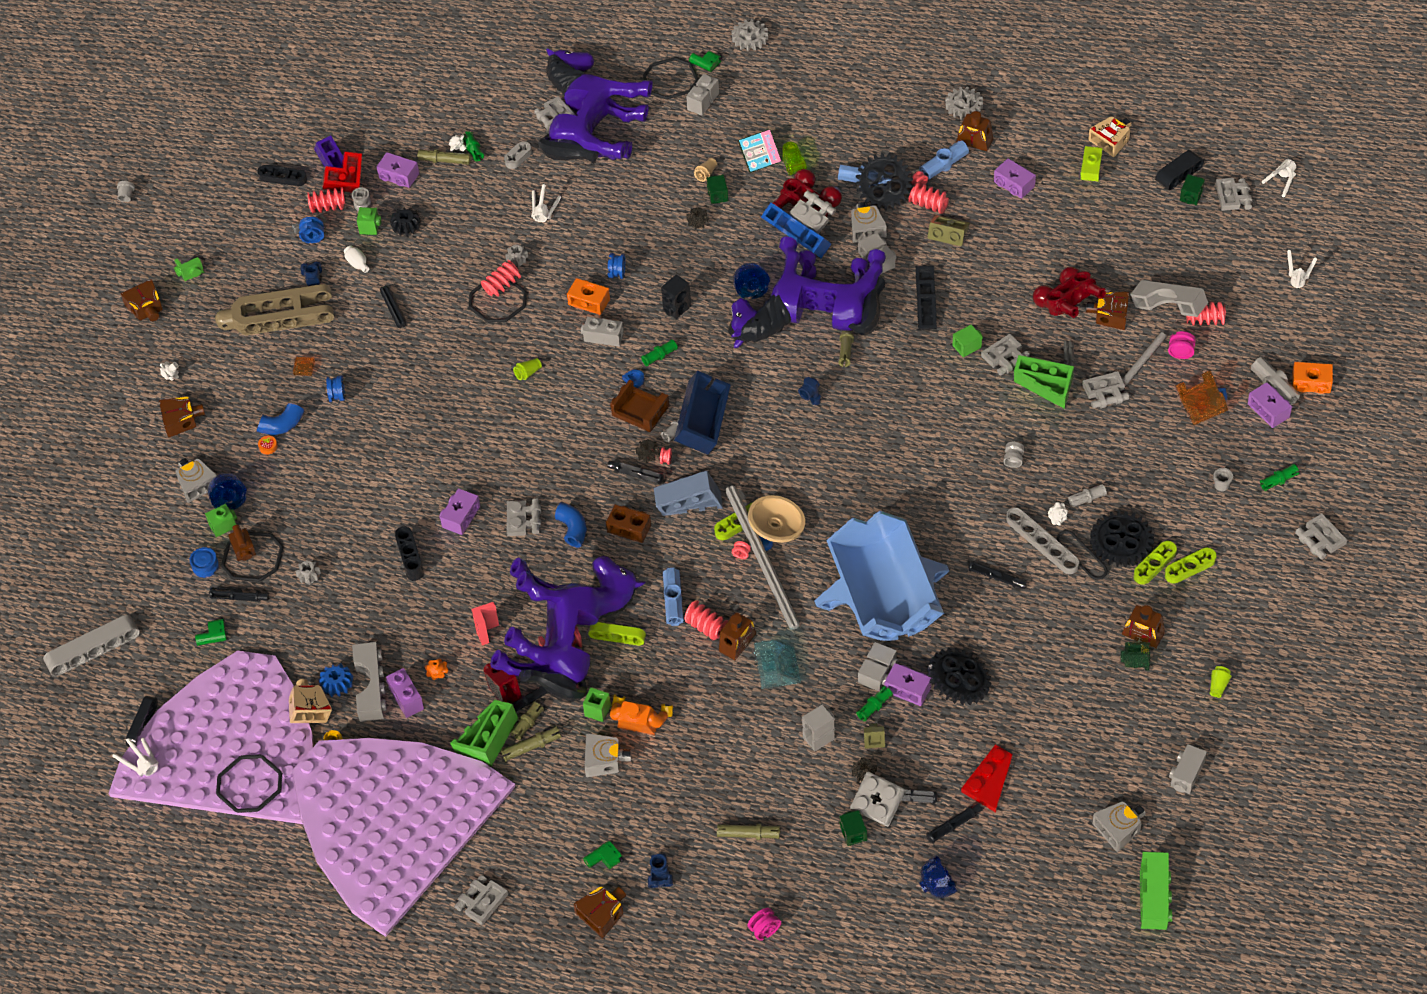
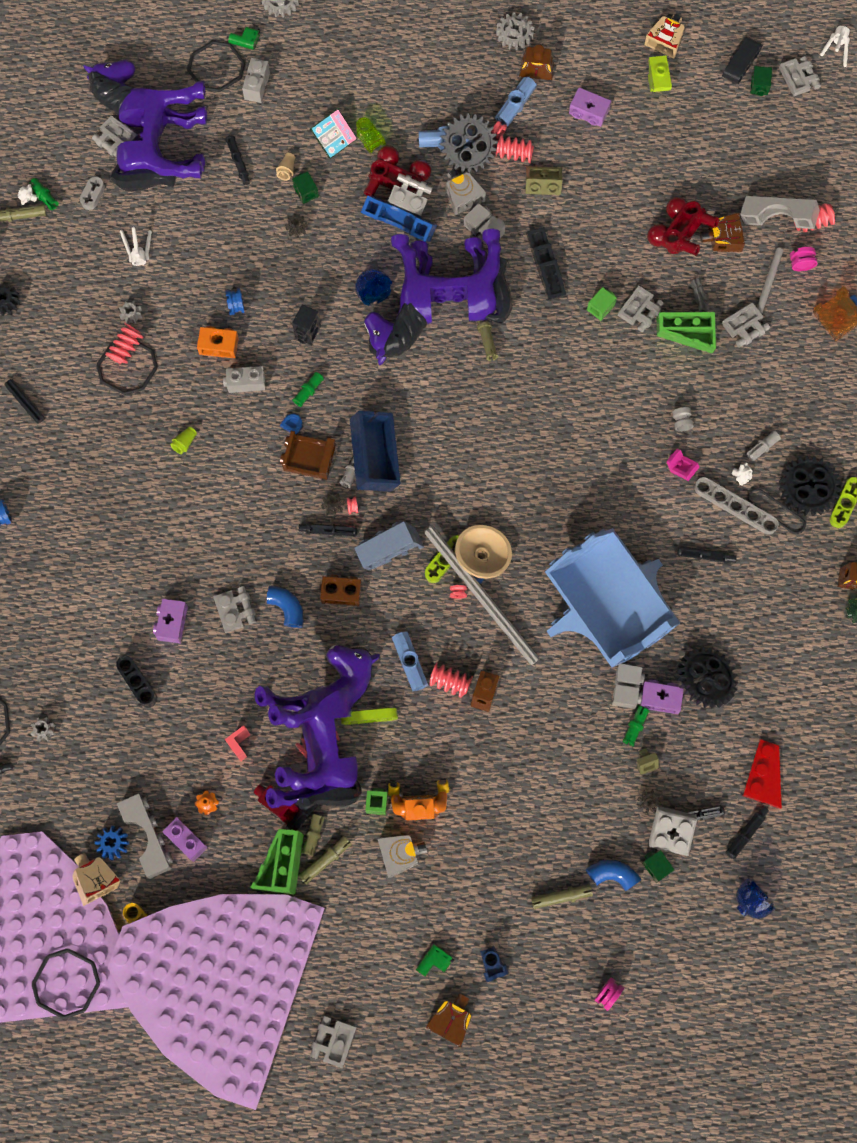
camera: 20 degrees left, 20 degrees up
(662, 153) = (236, 156): none -> black piece
(776, 664) = (532, 710): clear light blue slope -> none
(808, 821) = (615, 871): none -> blue cylinder
(810, 391) = (469, 398): dark blue plate -> none
(818, 727) = (596, 771): light grey piece -> none
(998, 493) = (682, 465): none -> dark pink bracket

